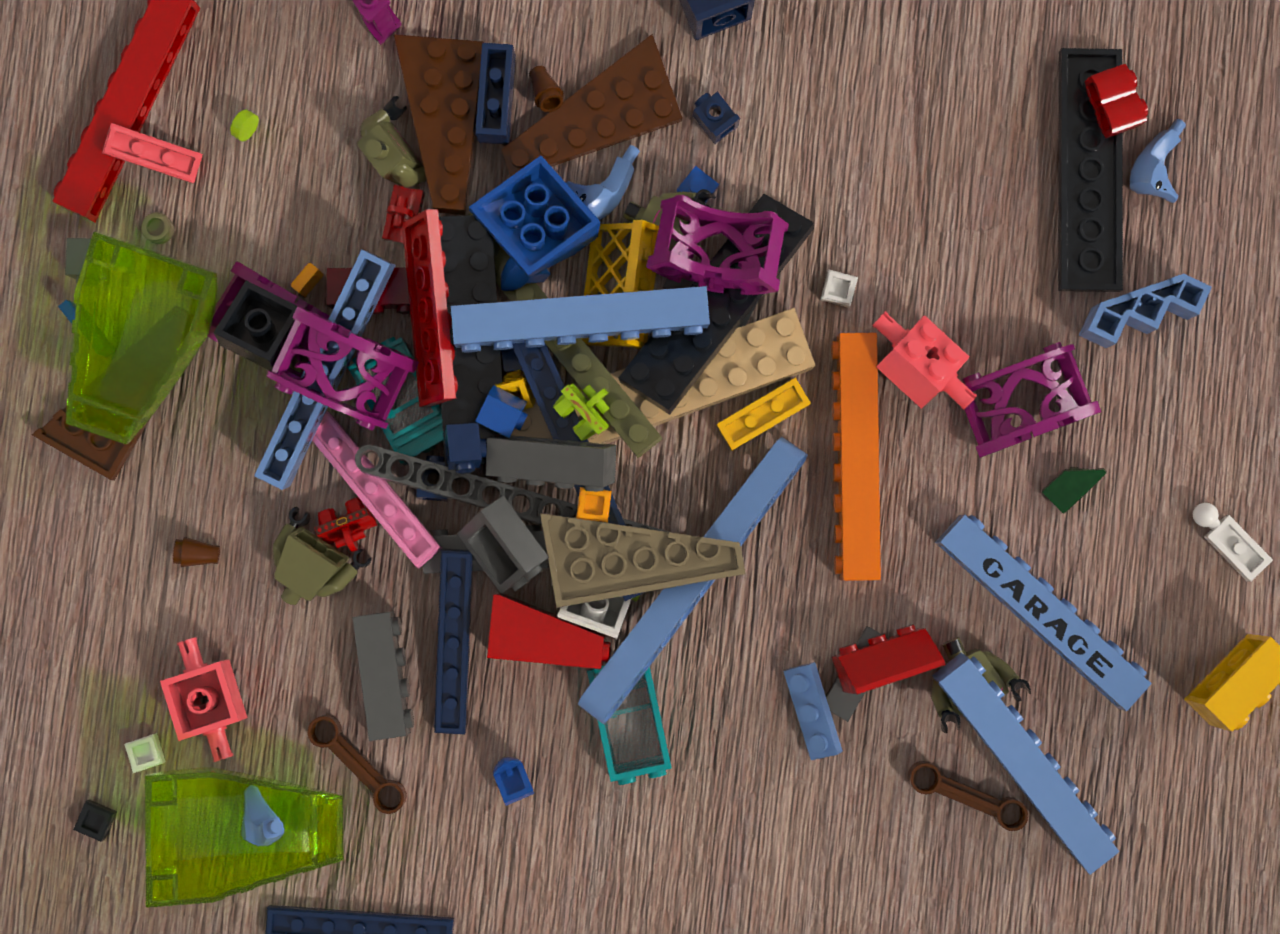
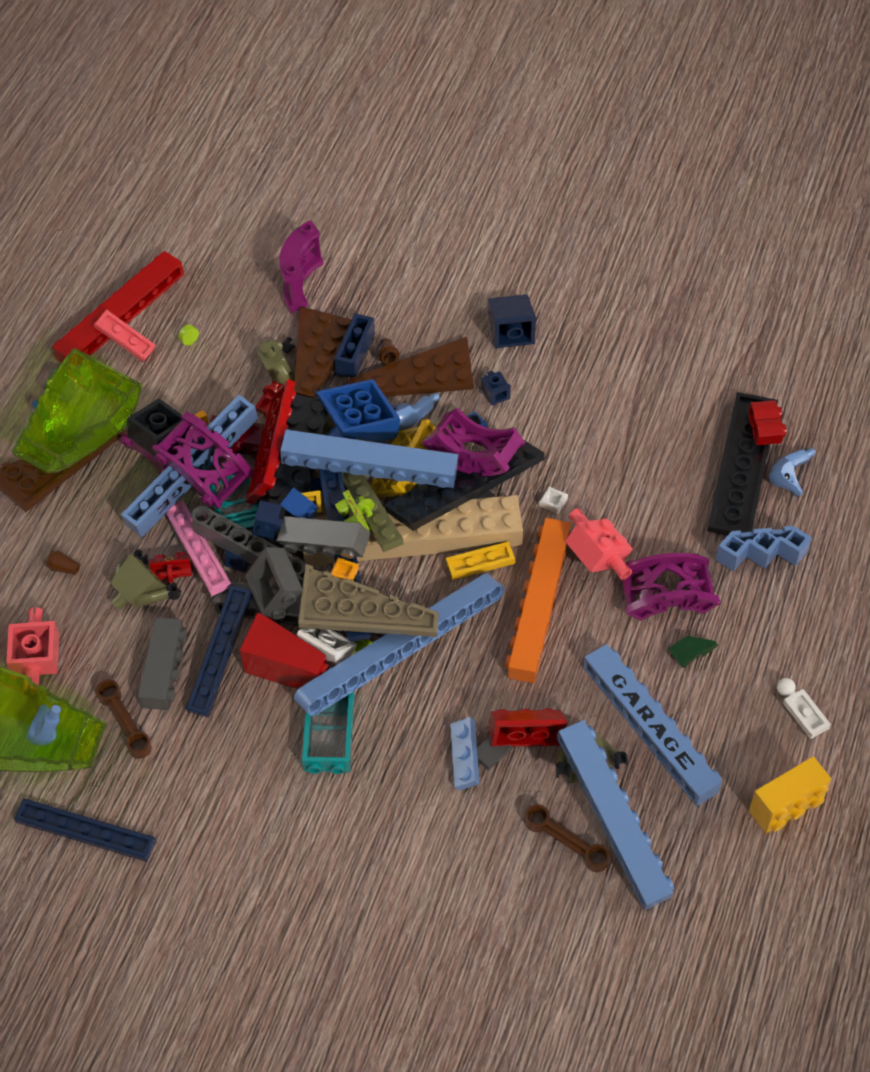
camera: 10 degrees right, 30 degrees down
(512, 780) = (230, 749): blue plate -> none

